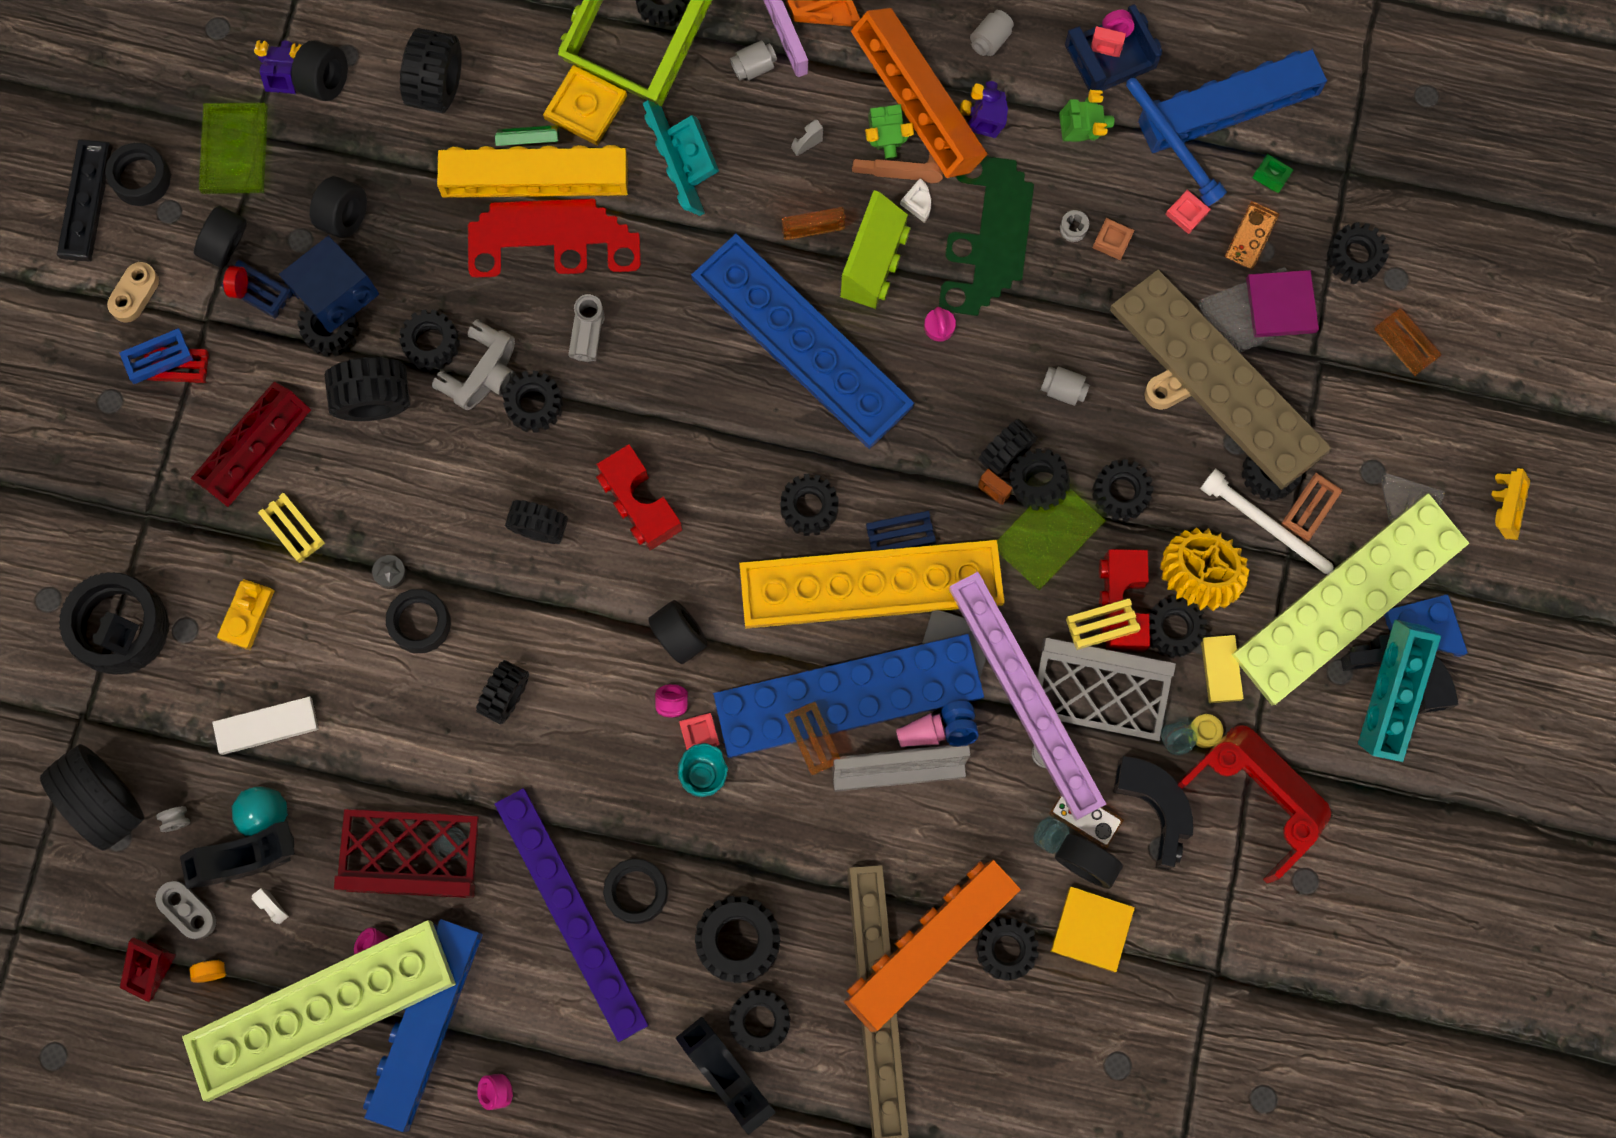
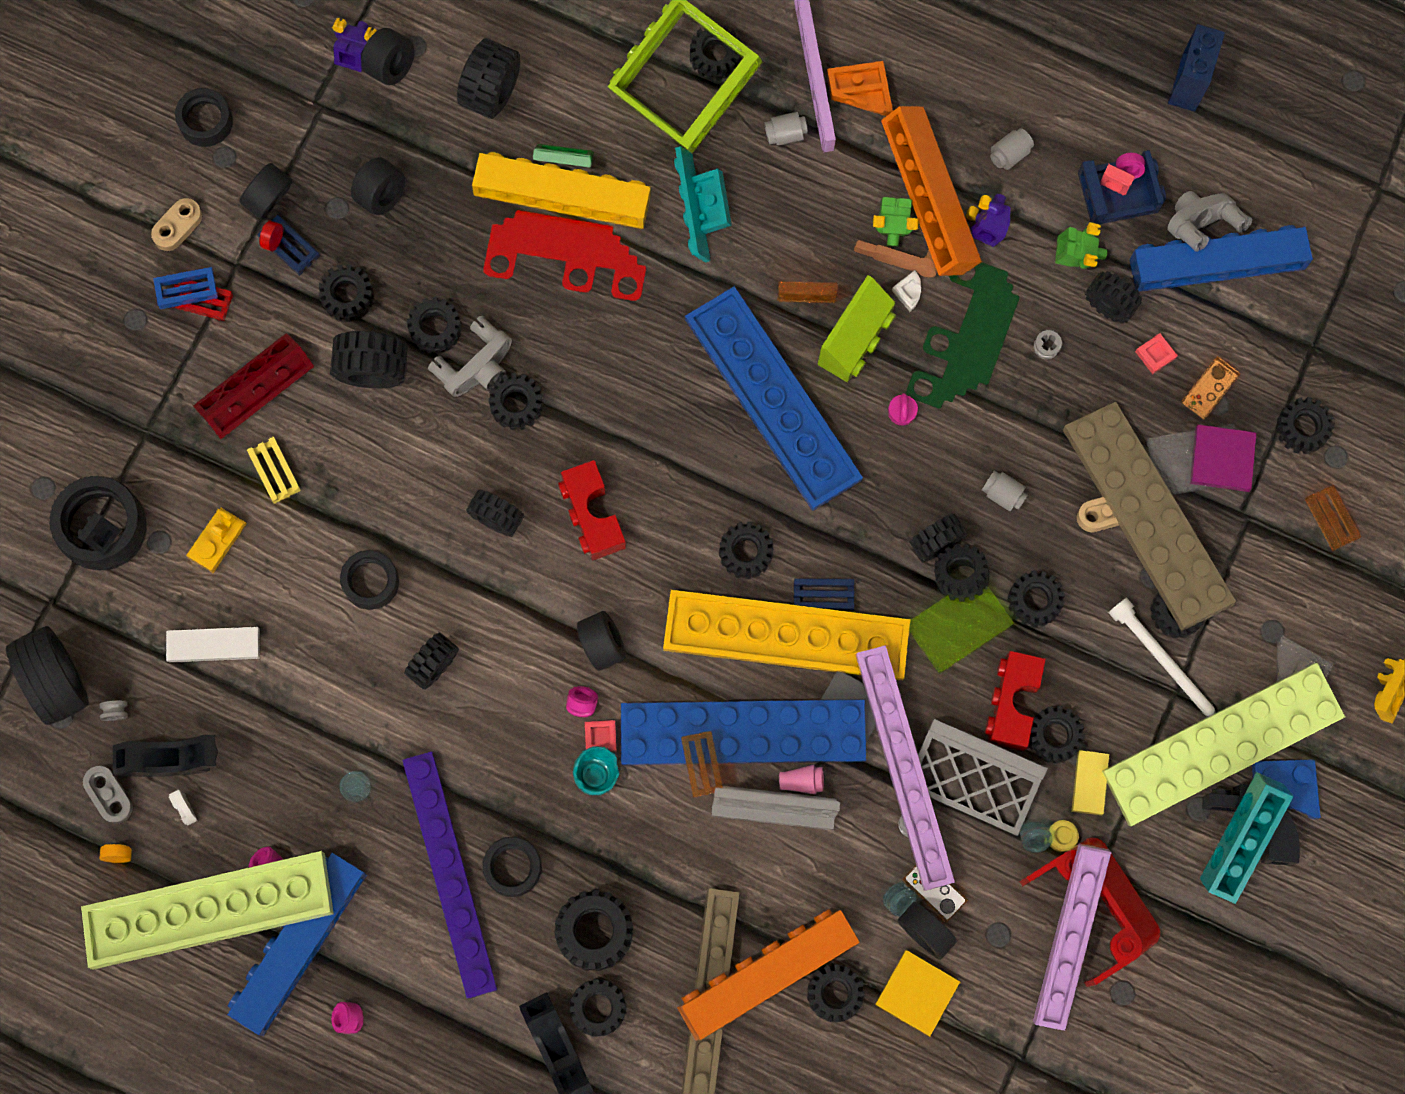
camera: 10 degrees right, 0 degrees up
(84, 201) = (150, 131): black tile -> none
(145, 968) = (60, 838): dark red slope -> none
(233, 148) = (294, 110): clear neon green tile -> none
(258, 809) = (190, 719): teal hair -> none
(329, 283) = (355, 255): dark blue panel -> none
(389, 572) = (353, 529): dark grey tile -> none
(407, 883) = (306, 813): dark red fence -> none
(585, 105) = (622, 137): yellow tile -> none
(586, 330) = (578, 347): light grey piece -> none
(810, 139) = (823, 212): light grey tile -> none
(960, 724) = (838, 779): blue wheel -> none
(995, 487) = (919, 570): dark orange tile -> none
(1113, 239) = (1081, 364): nougat tile -> none
(1129, 616) = (980, 706): light yellow tile -> none
(1131, 162) = (1113, 297): none -> black tyre
(1168, 800) = (1009, 884): black arch -> none
(1197, 58) = (1199, 212): none -> light grey connector
(1210, 189) = (1180, 336): blue piece -> none
(1224, 572) = (1110, 698): yellow gear -> none
(1241, 834) = (1071, 936): none -> lavender tile
(1272, 173) = (1243, 335): green tile -> none
(1297, 529) = (1189, 669): nougat tile -> none

